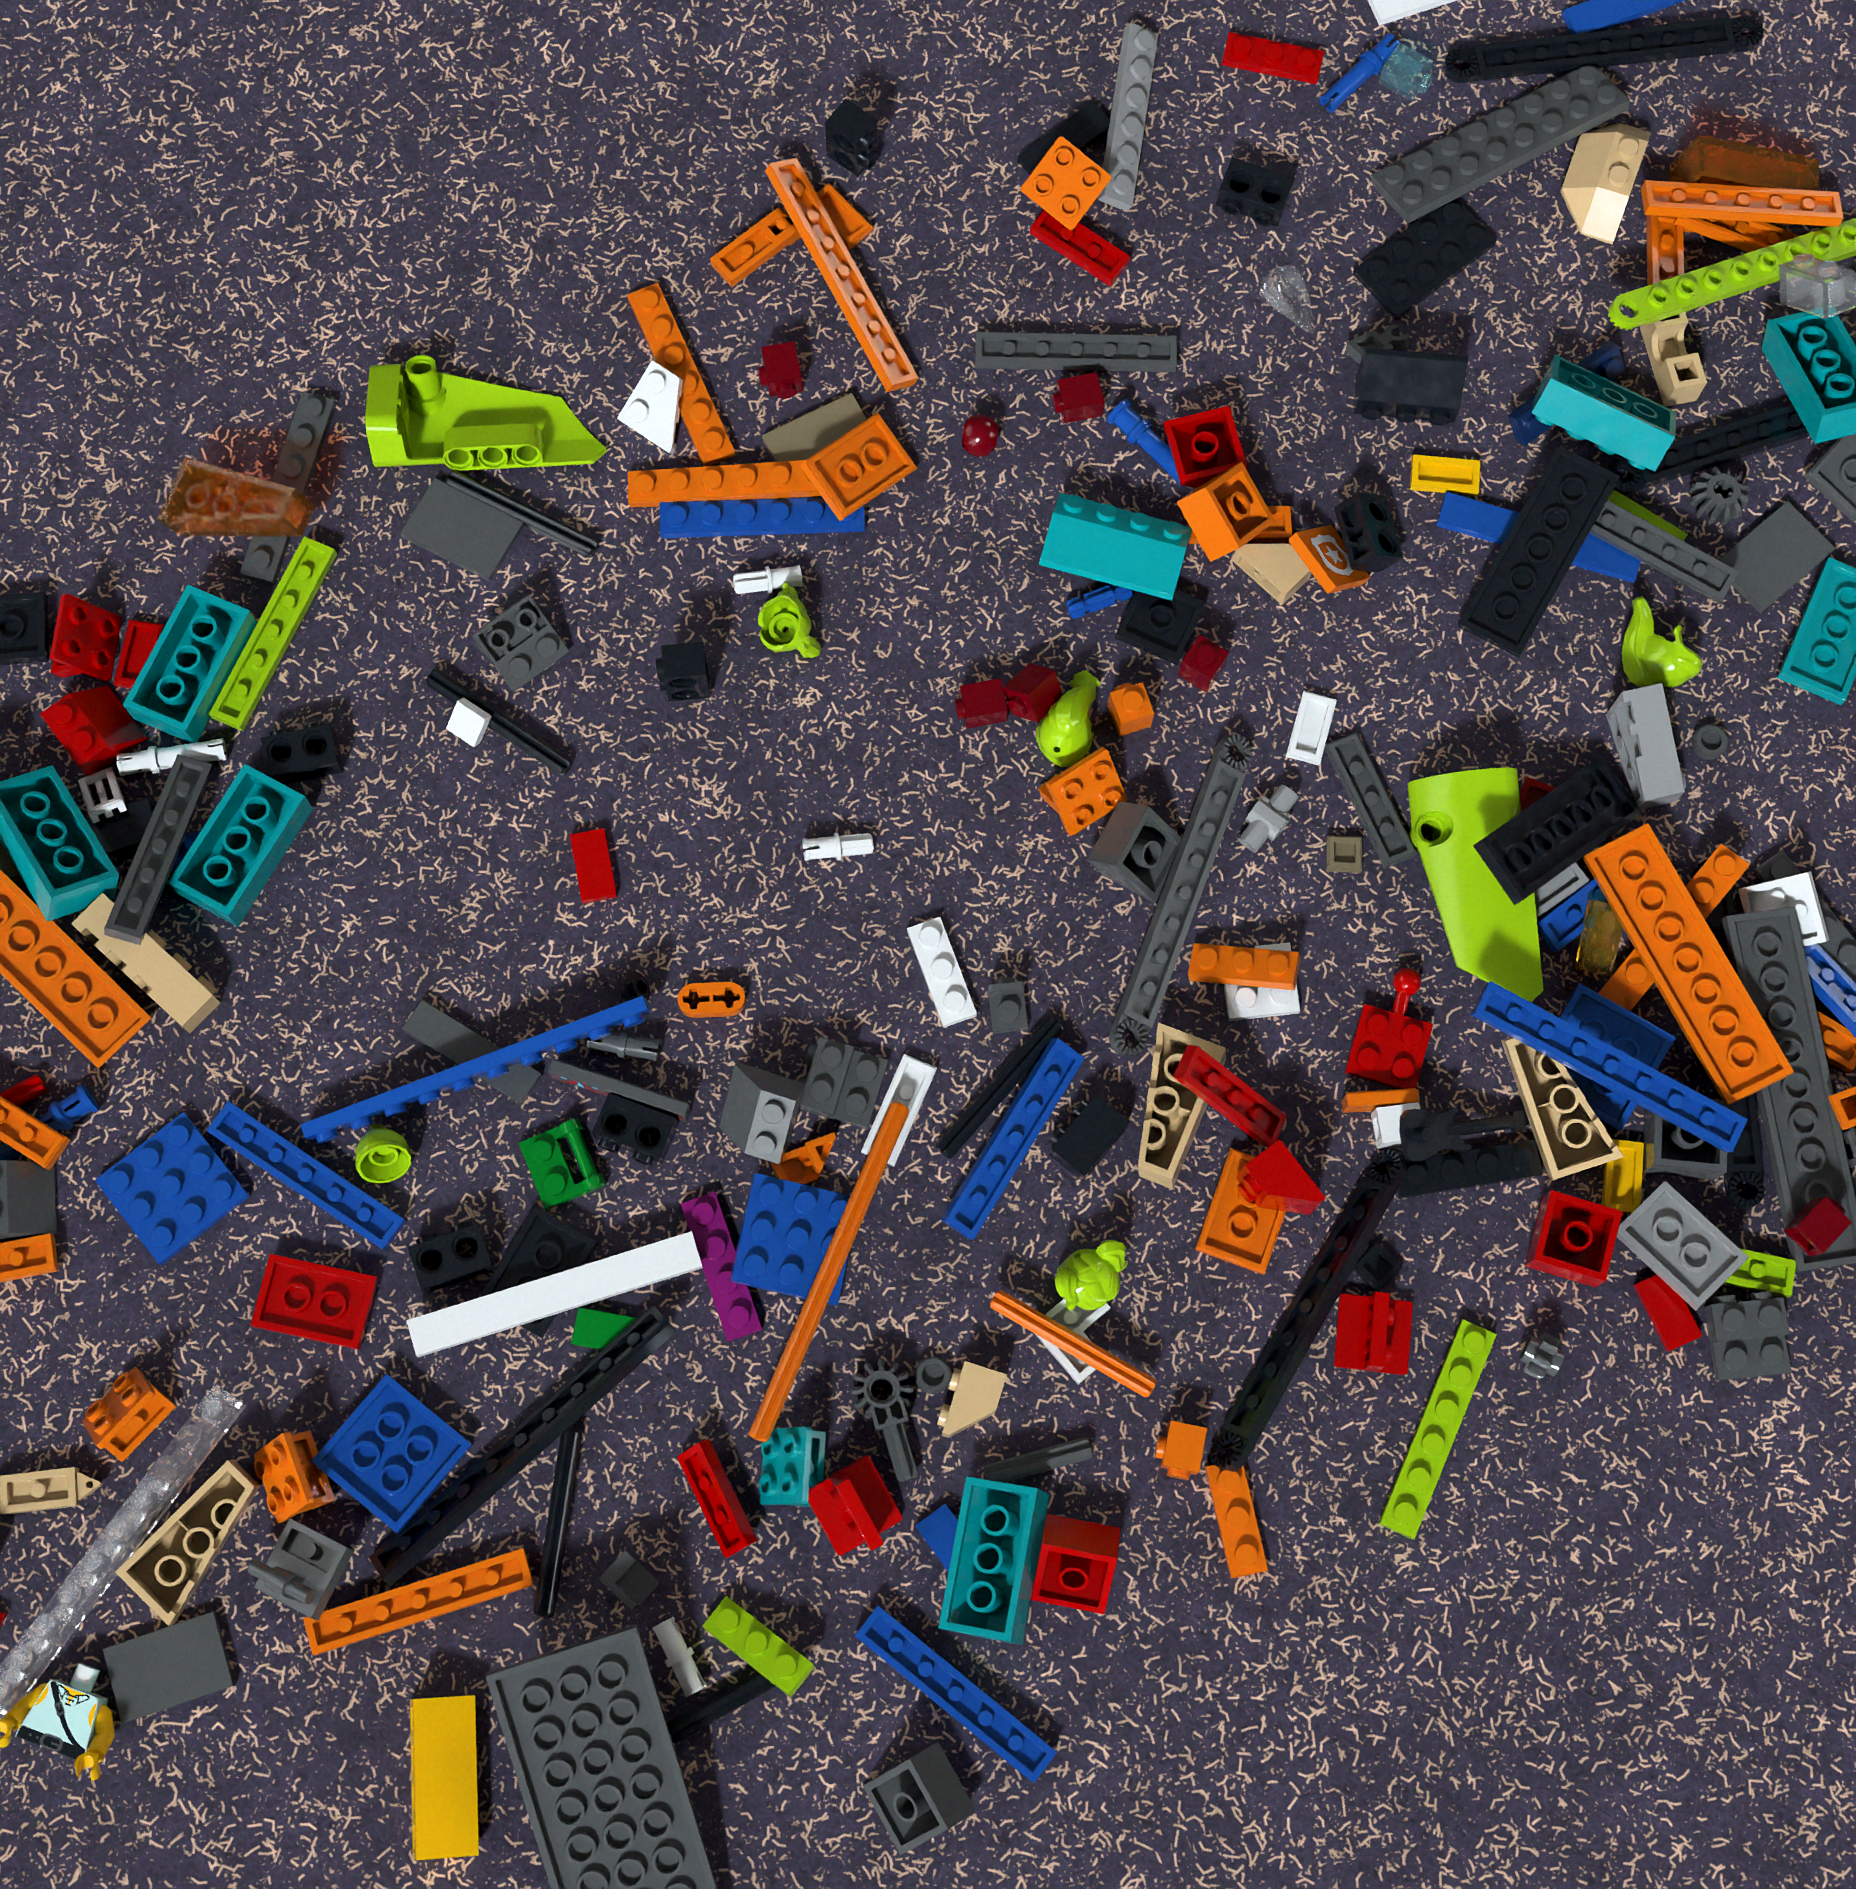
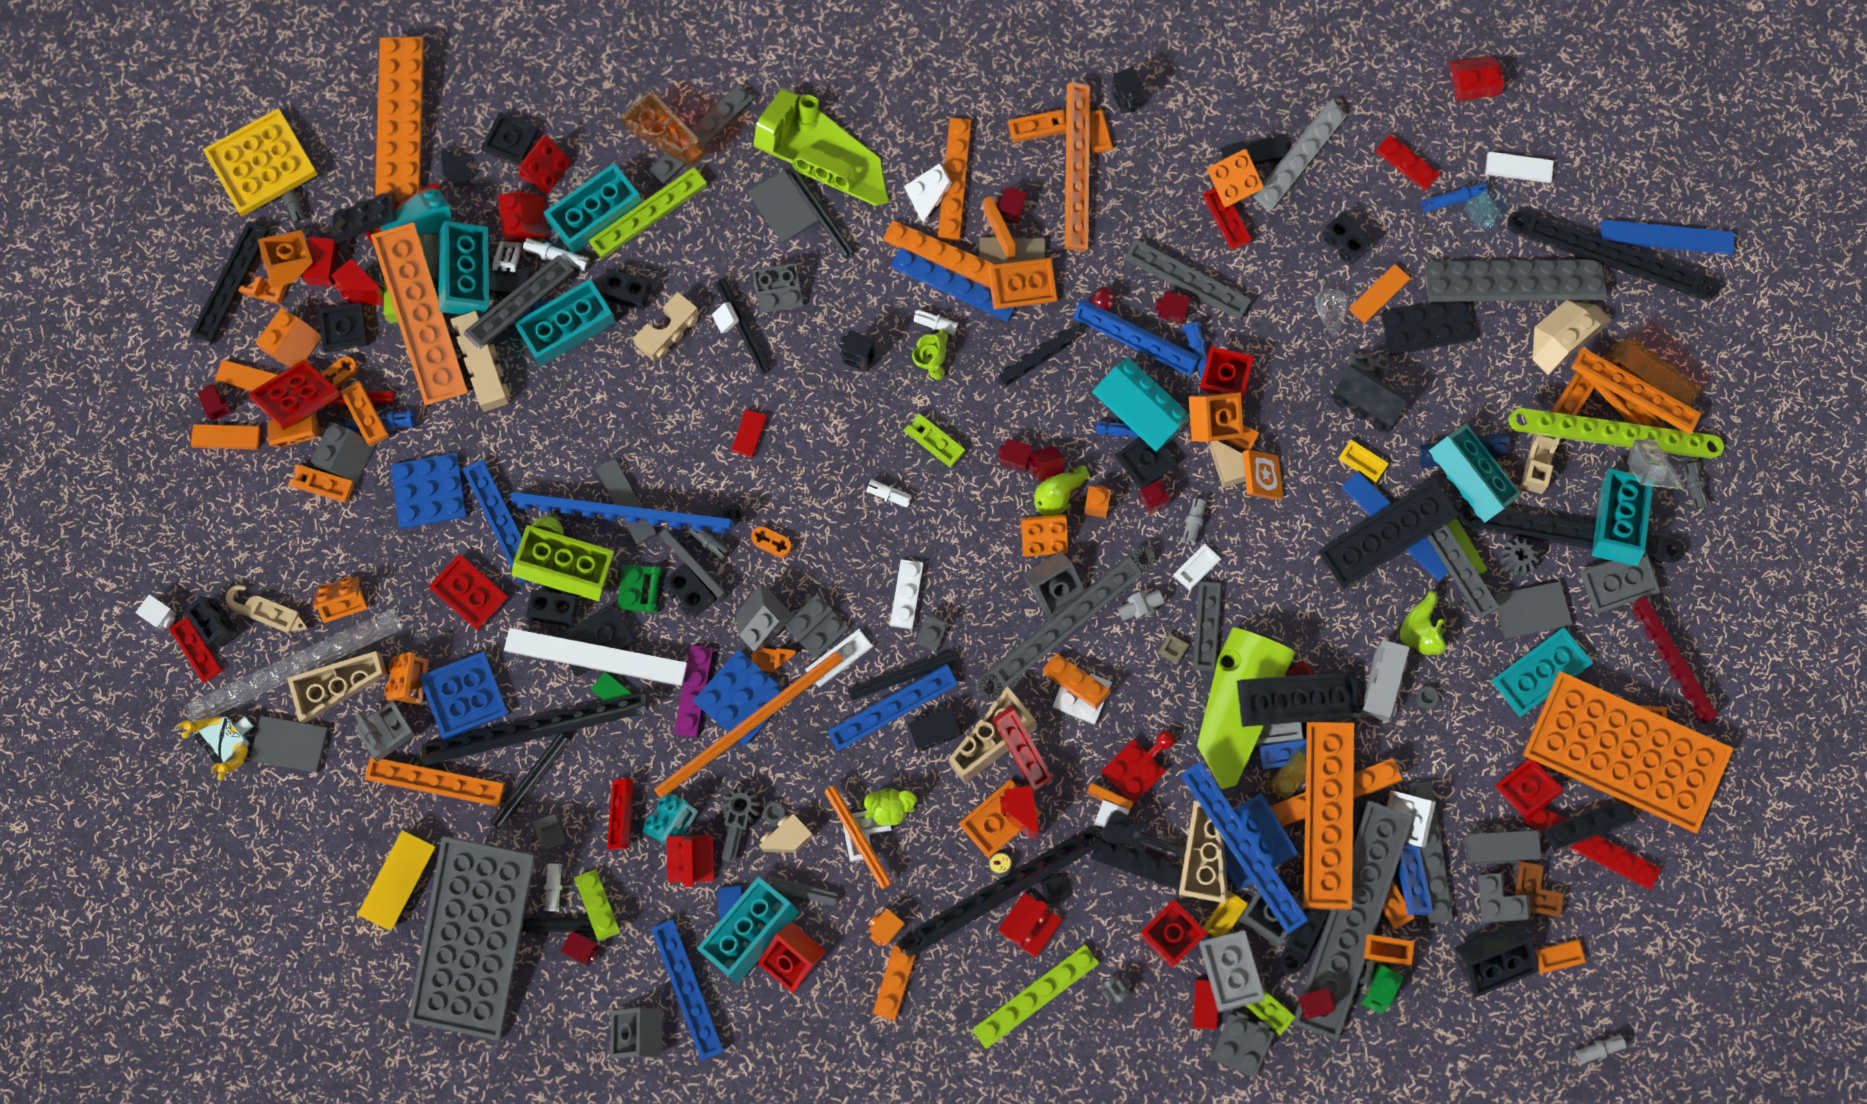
camera: 35 degrees right, 0 degrees up
(136, 648) = (570, 183): red tile -> none
(388, 806) = (656, 342): none -> tan arch
(433, 1185) = (562, 563): none -> lime brick
(770, 1723) = (580, 949): none -> dark red brick
(784, 408) = (999, 228): none -> orange tile
(859, 741) = (935, 441): none -> lime plate
(939, 546) = (1029, 362): none -> black plate
(1053, 463) = (1136, 337): none -> blue tile
(1272, 669) = (1194, 521): none -> light grey pin
(1286, 1273) = (1000, 865): none -> tile
(1337, 246) = (1379, 294): none -> orange tile
(1368, 532) = (1295, 471): black brick -> none

